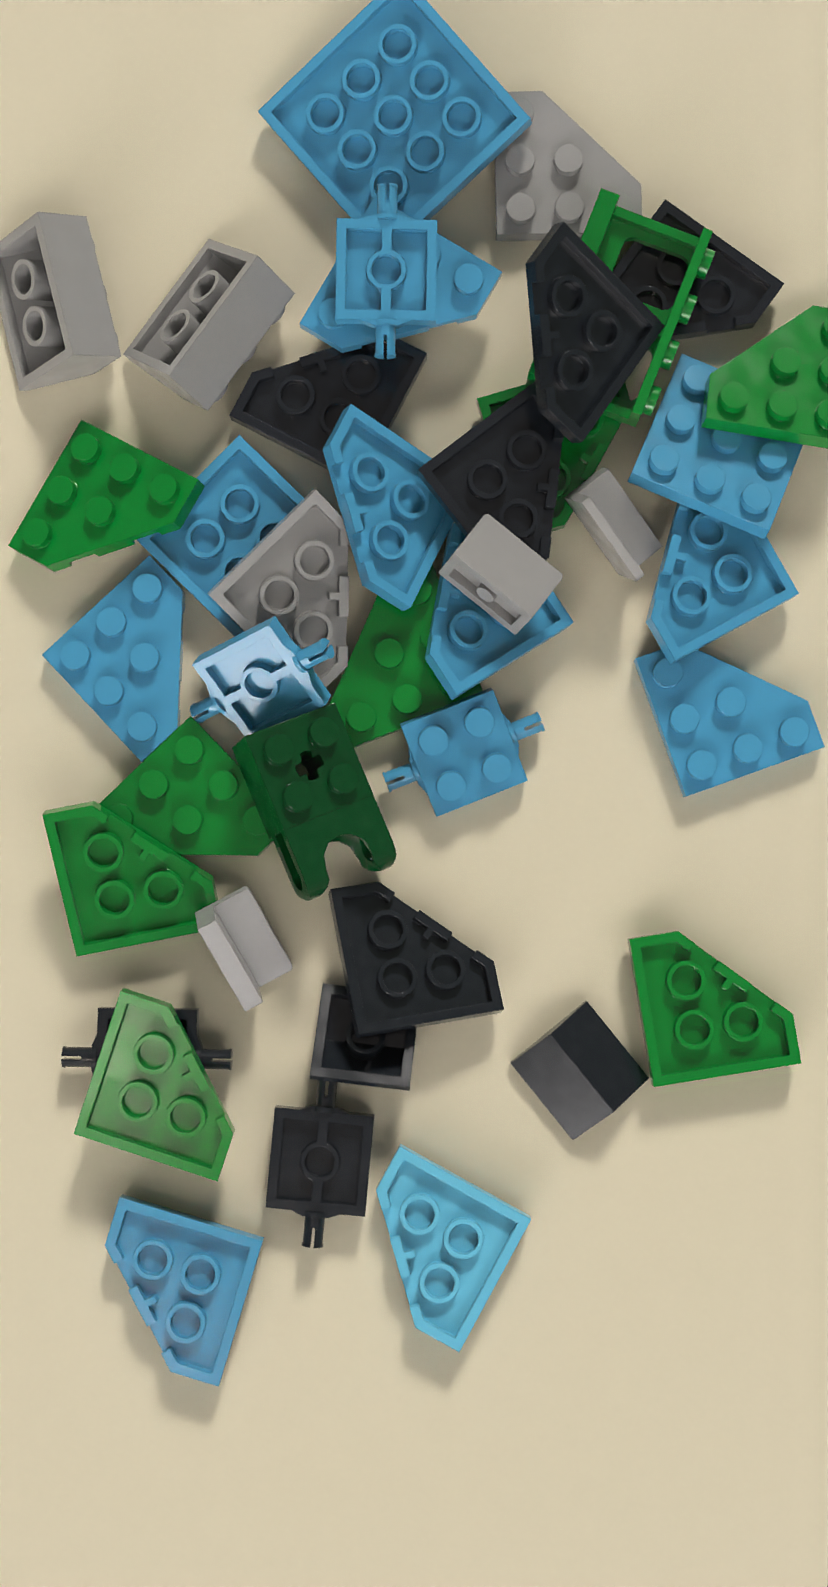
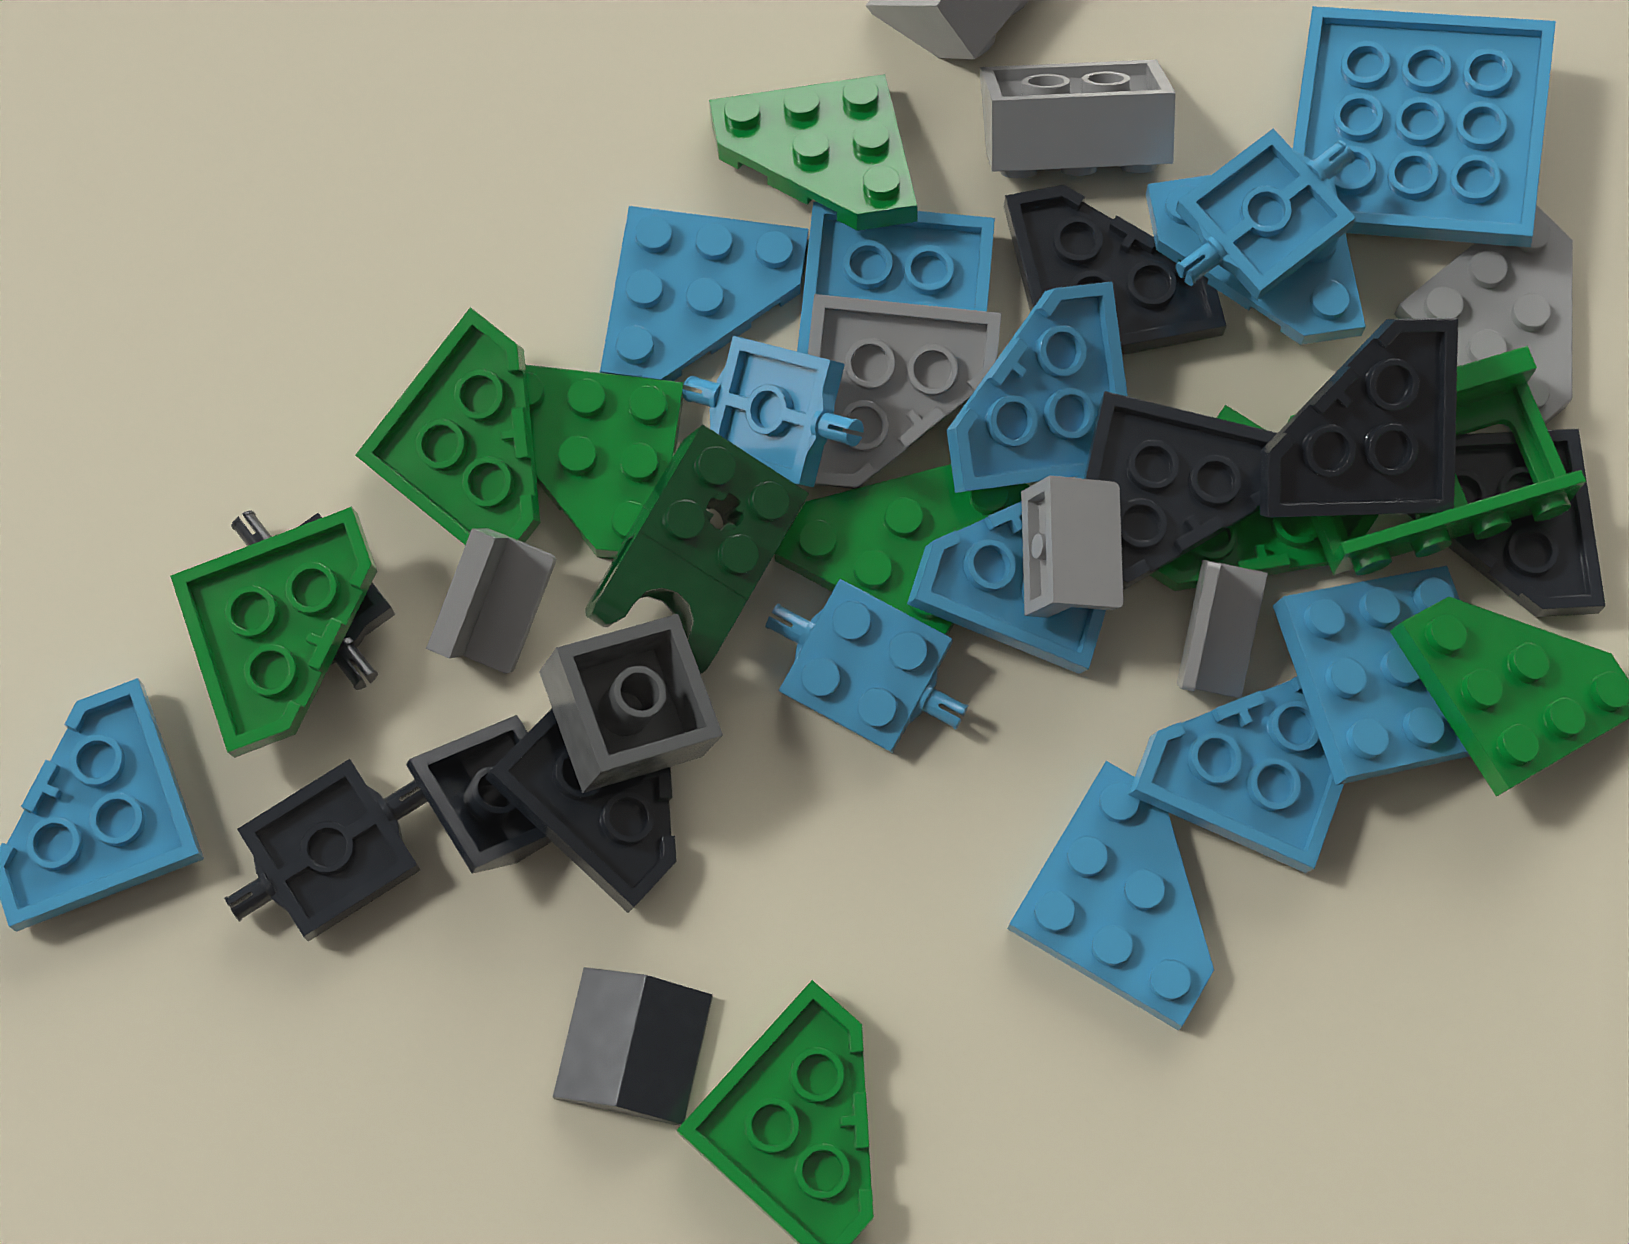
camera: 45 degrees right, 15 degrees down
(386, 919) = (630, 702): none -> dark grey brick
(446, 1242) = (339, 1047): medium azure plate -> none

